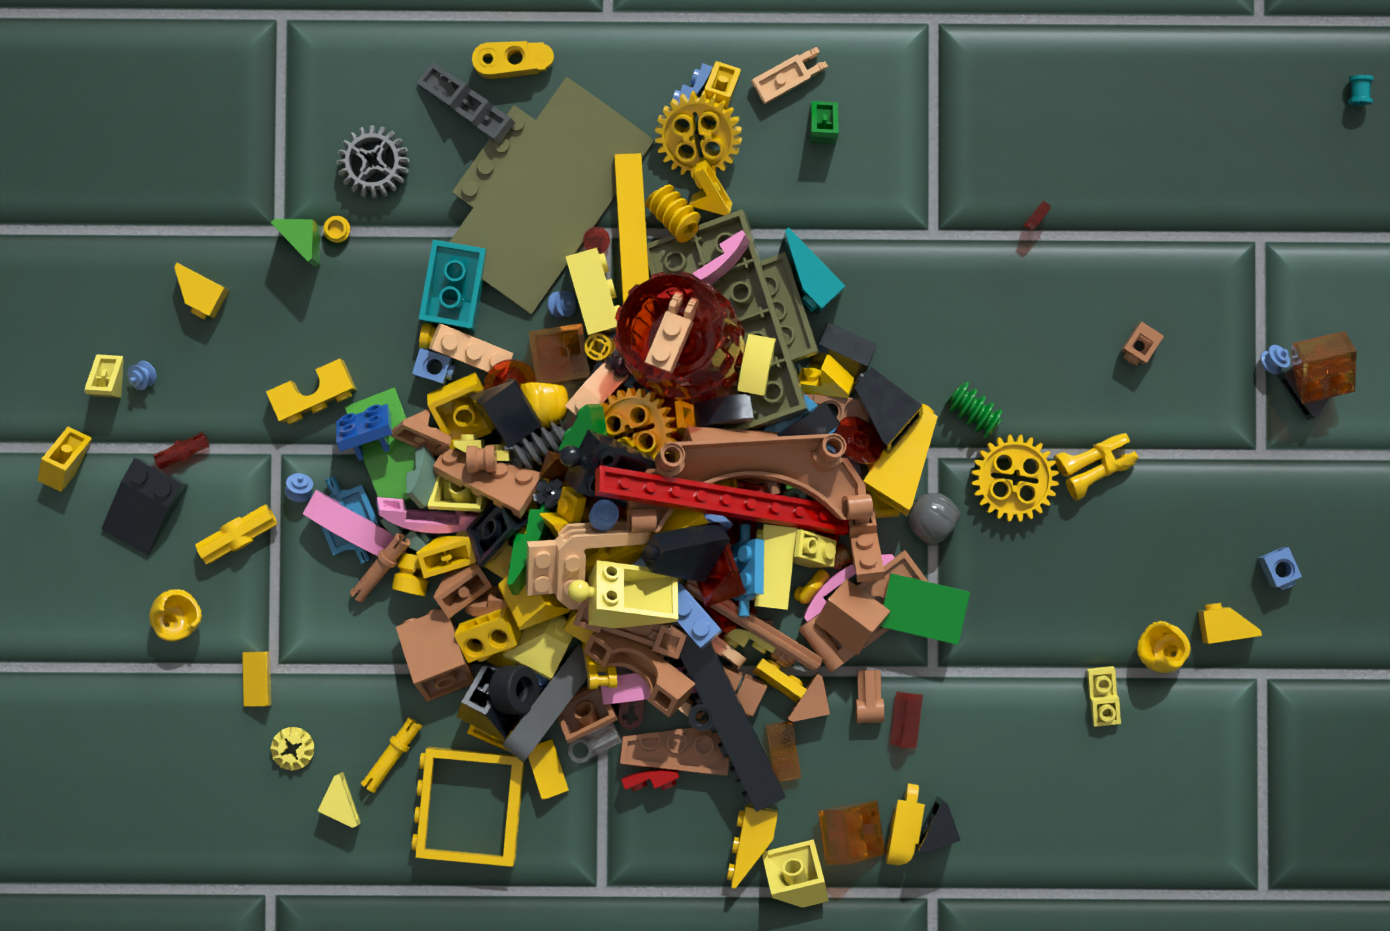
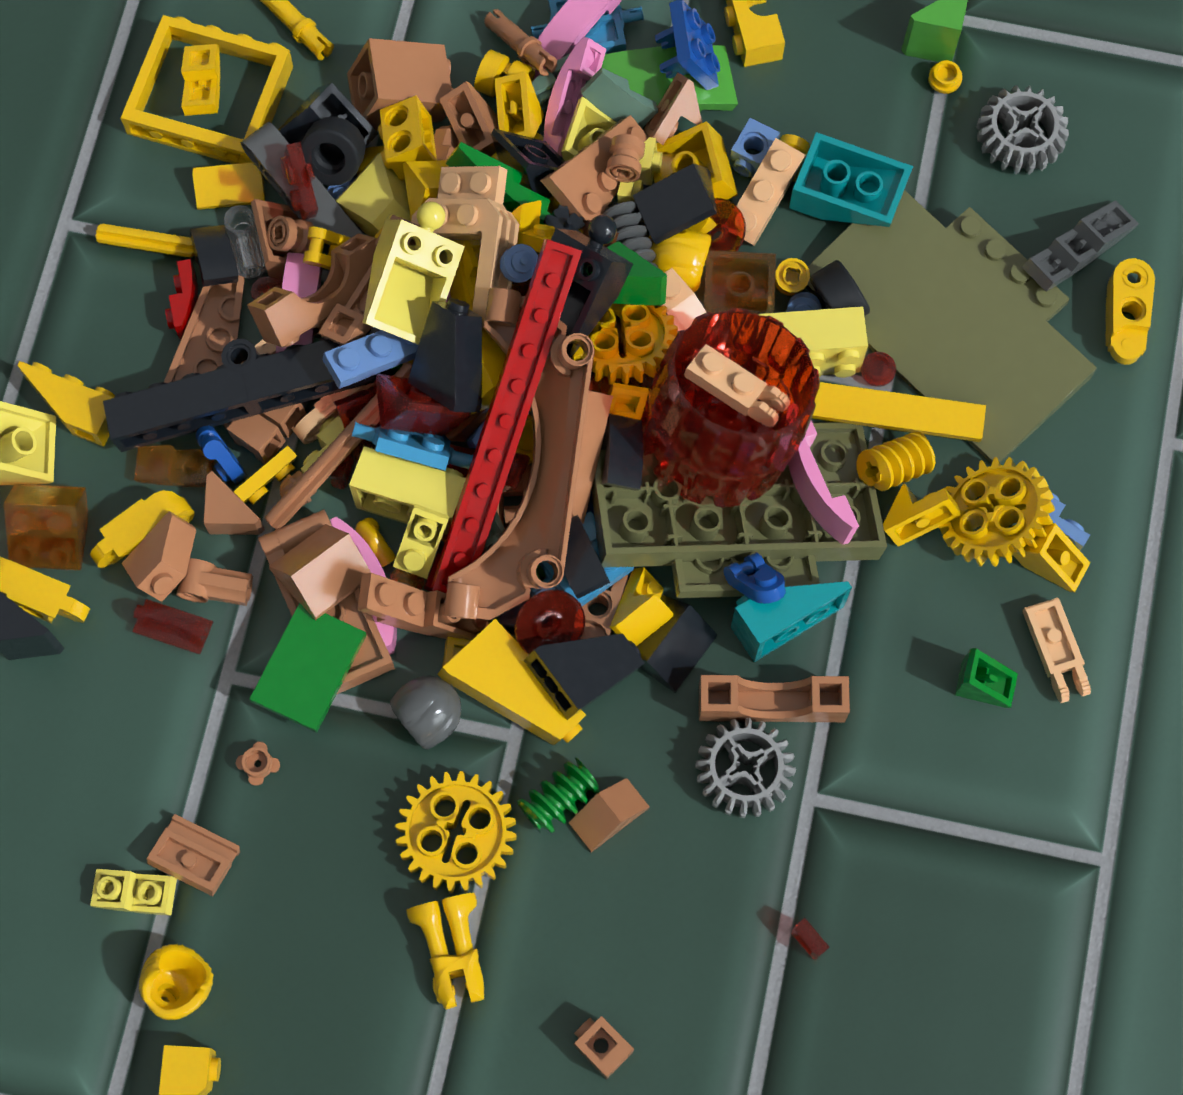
camera: 105 degrees right, 15 degrees down
(469, 810) = (202, 79): none -> yellow slope
(534, 315) = (791, 282): none -> yellow wheel
(549, 278) = (838, 288): none -> black tyre
(553, 703) = (300, 176): none -> clear red plate
(590, 705) = (287, 234): none -> nougat wheel
(605, 821) = (144, 240): none -> yellow axle
(612, 763) = (214, 255): none -> black slope
(756, 364) = (679, 504): light yellow slope -> none
(772, 716) = (215, 448): none -> blue plate
(804, 290) = (762, 586): none -> blue plate
(839, 760) = (135, 523): none -> yellow piece
(862, 738) = (162, 557): none -> nougat slope
(872, 272) = (796, 701): none -> nougat arch
(933, 292) = (754, 783): none -> light grey gear
(977, 372) = (608, 814): none -> nougat slope
(994, 639) = (247, 761): none -> nougat plate
(1069, 660) = (193, 855): none -> nougat plate

